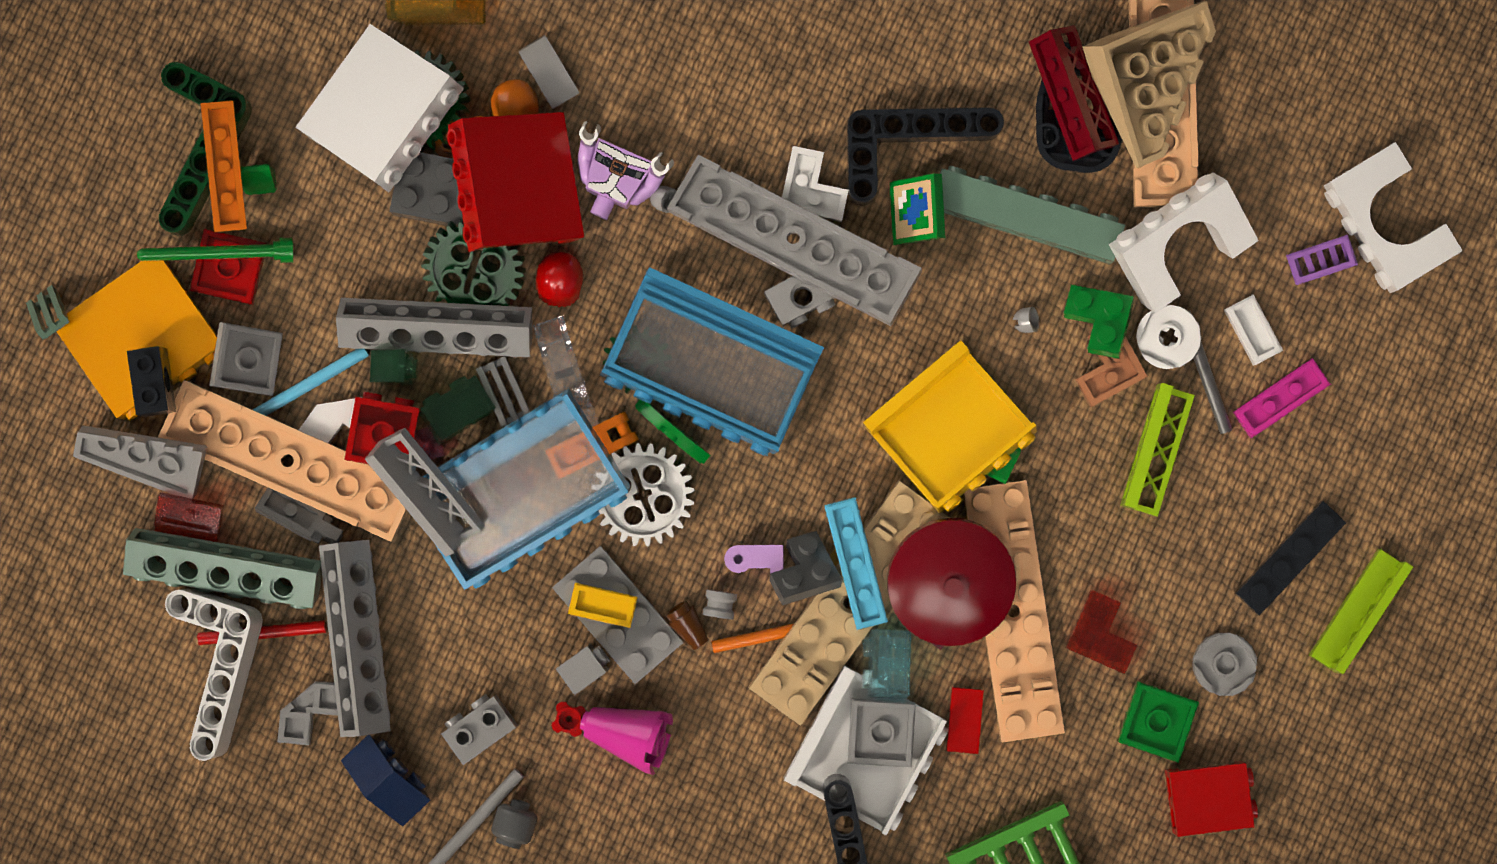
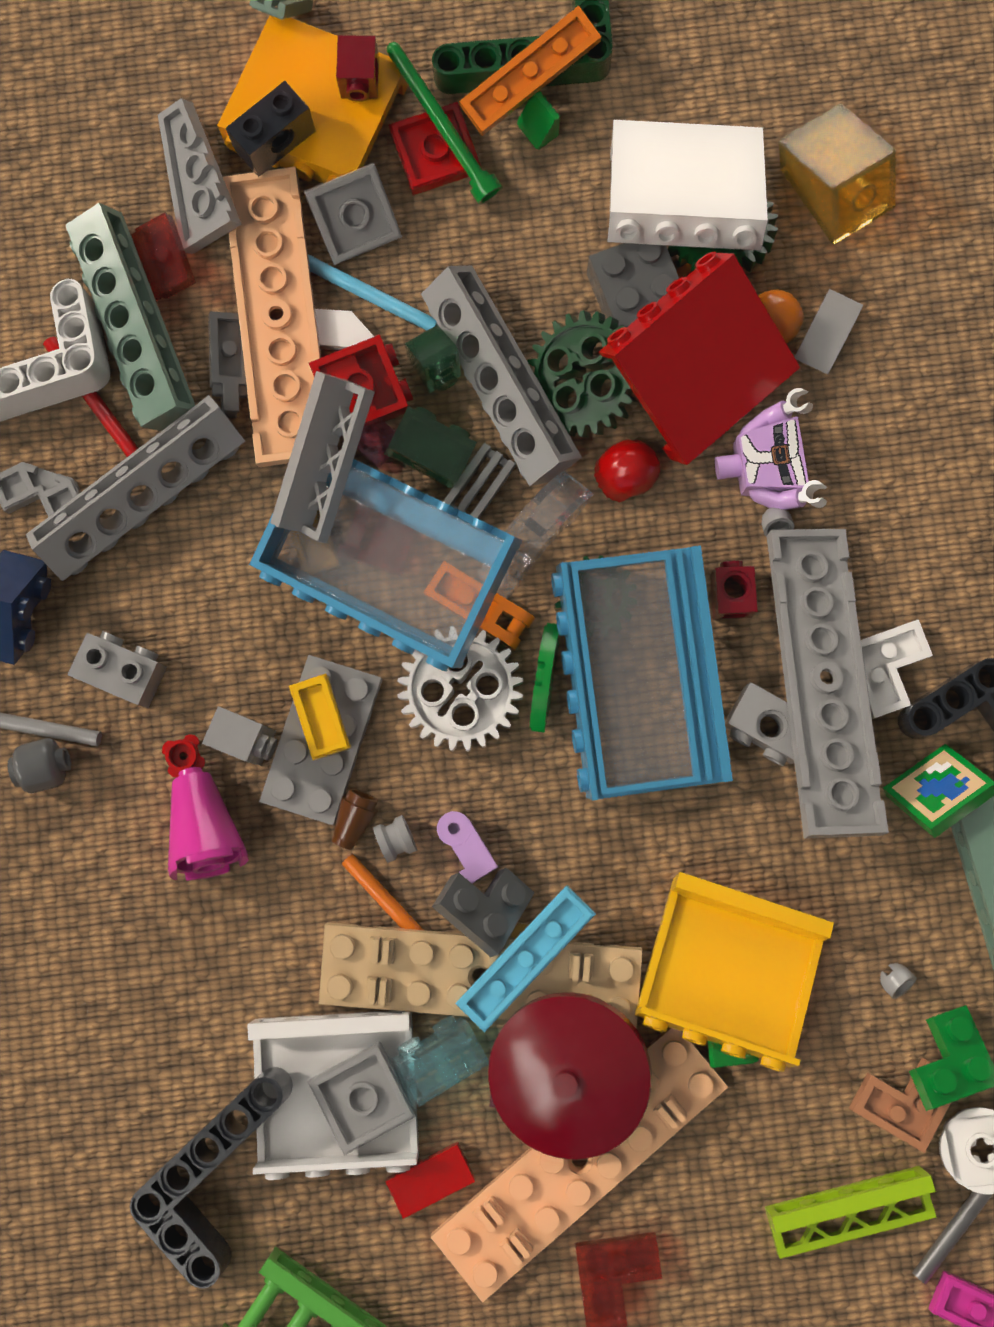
camera: 65 degrees right, 5 degrees down
(143, 290) = (357, 67): none -> dark red brick
(700, 273) = (733, 608): none -> dark red brick

